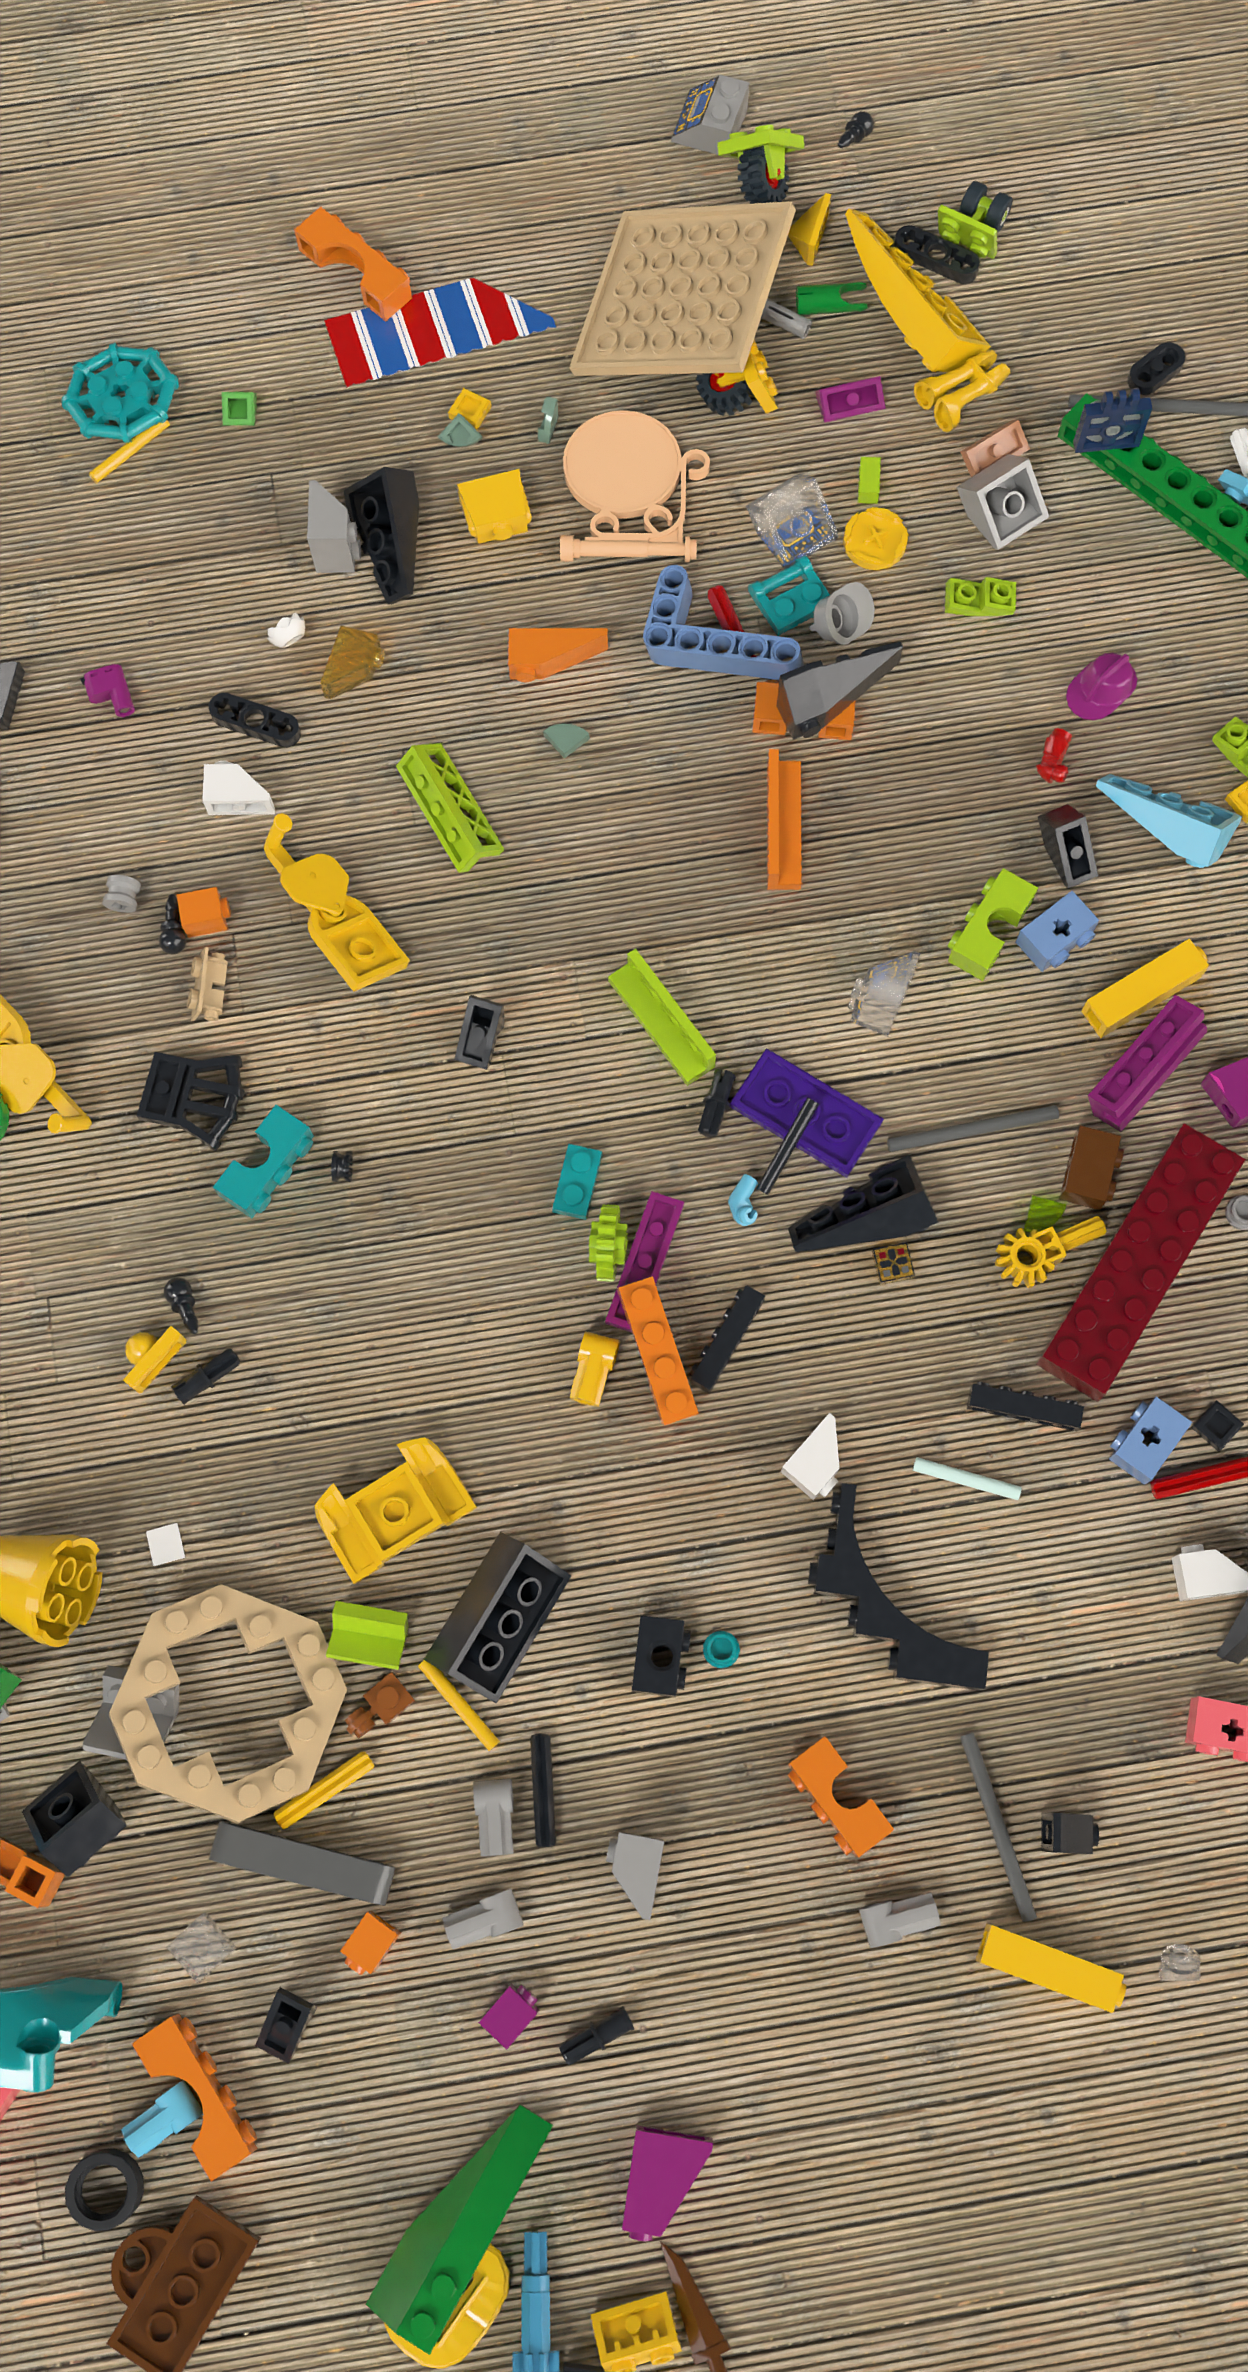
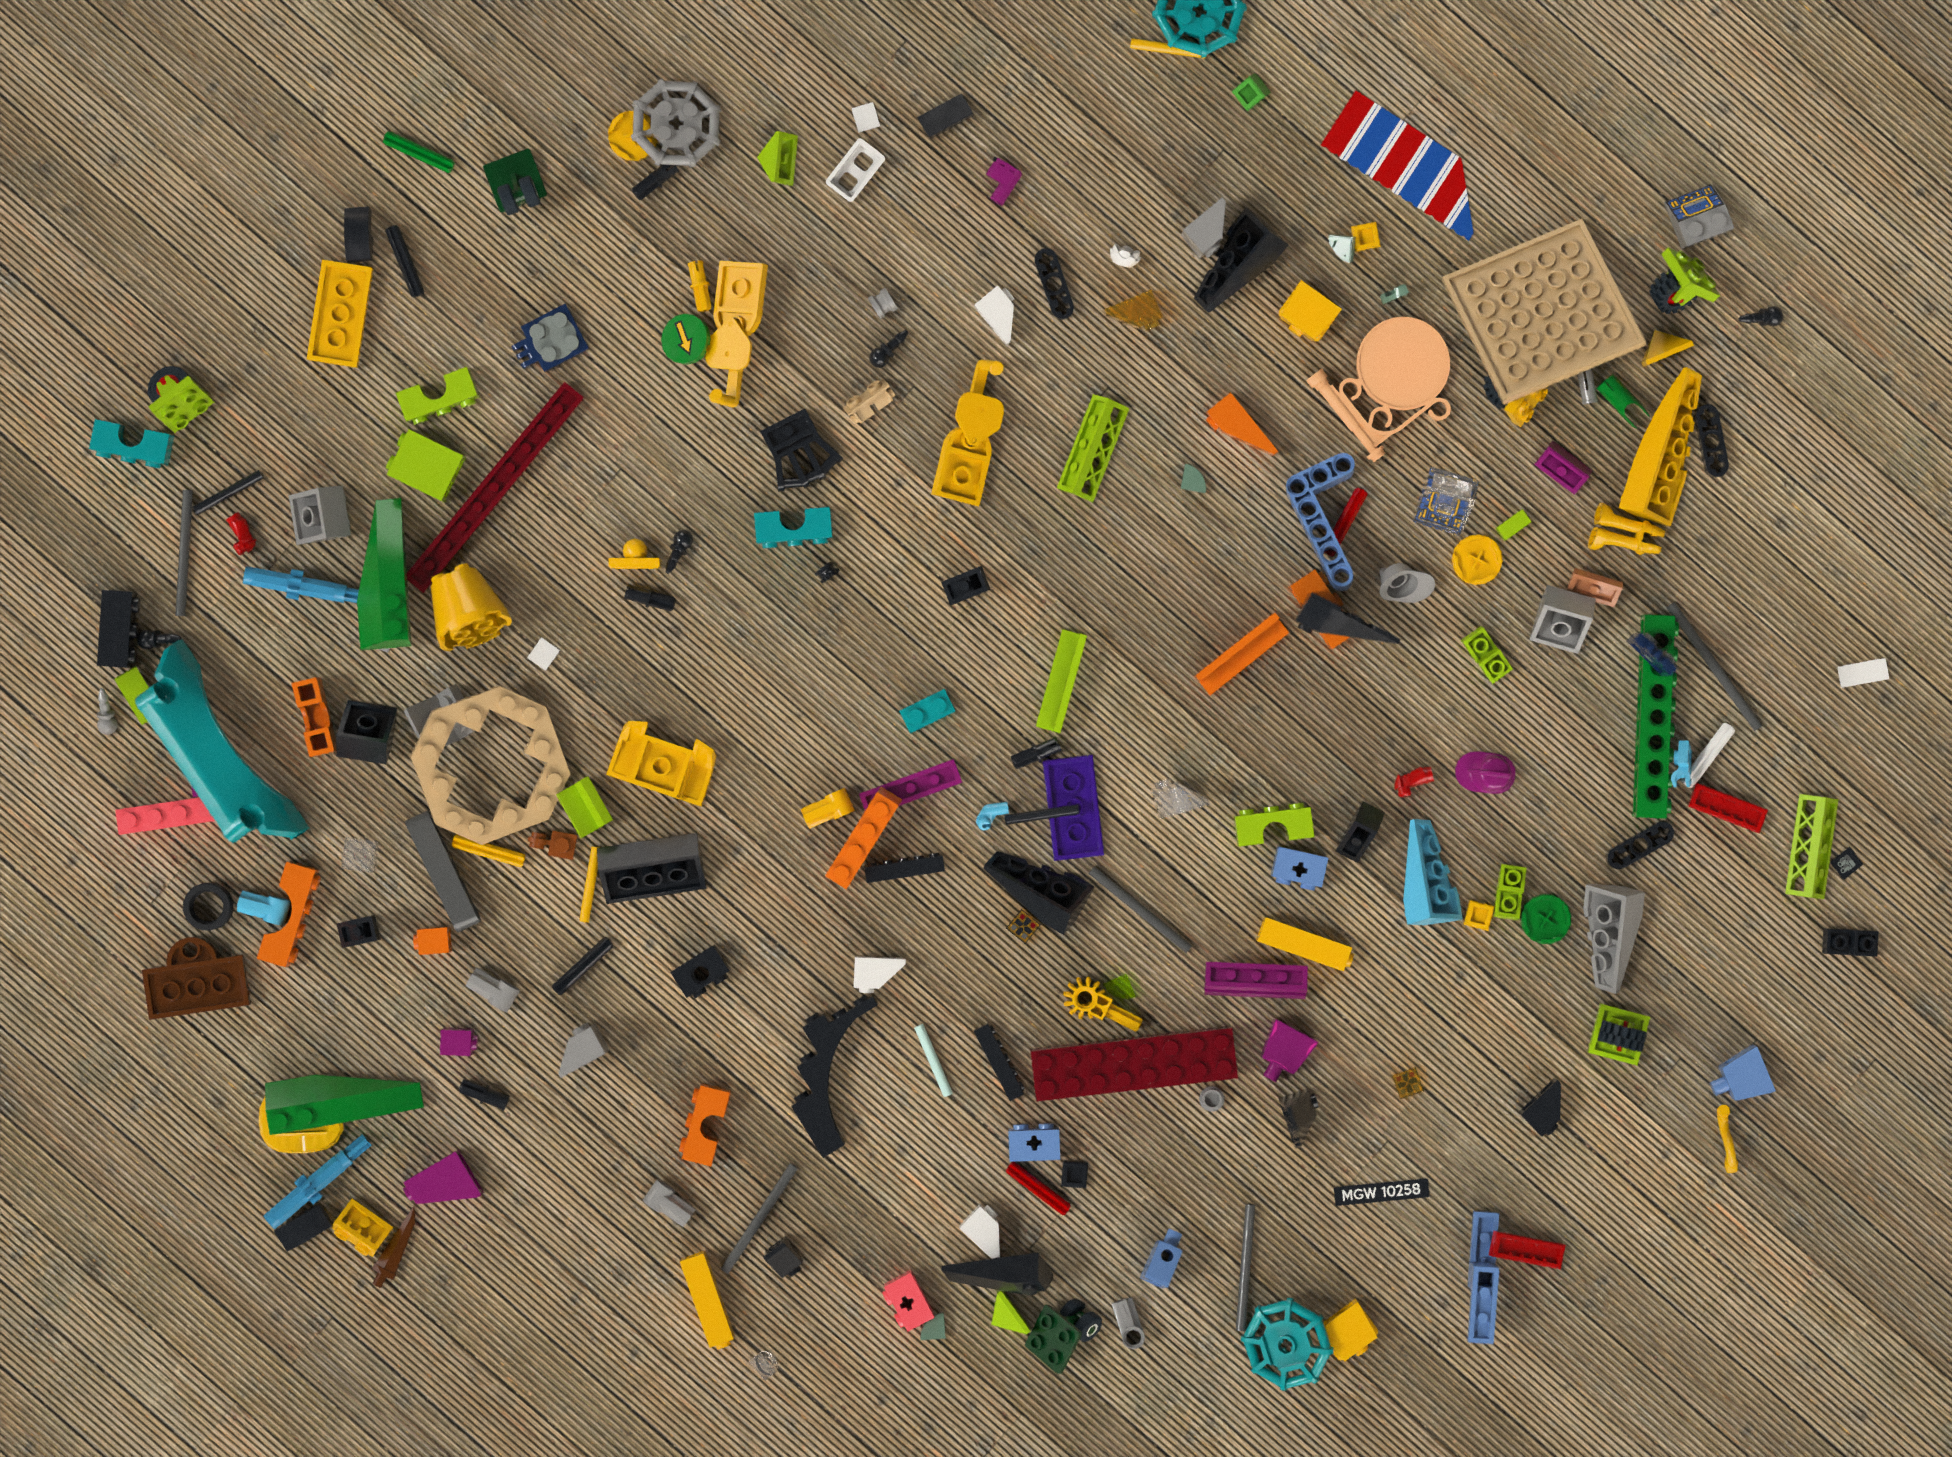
camera: 45 degrees right, 15 degrees up
(203, 912) = (910, 361): orange brick -> none
(328, 242) = (1409, 48): orange arch -> none
(494, 1807) = (553, 947): light grey piece -> none
(608, 1243) = (901, 761): lime gear -> none
(721, 1649) = (732, 1001): teal plate -> none
(793, 605) = (1392, 546): teal plate -> none
(967, 226) = (1764, 438): lime plate -> none
(1091, 1168) = (1168, 994): reddish brown brick -> none
(1154, 370) = (1734, 641): black plate -> none

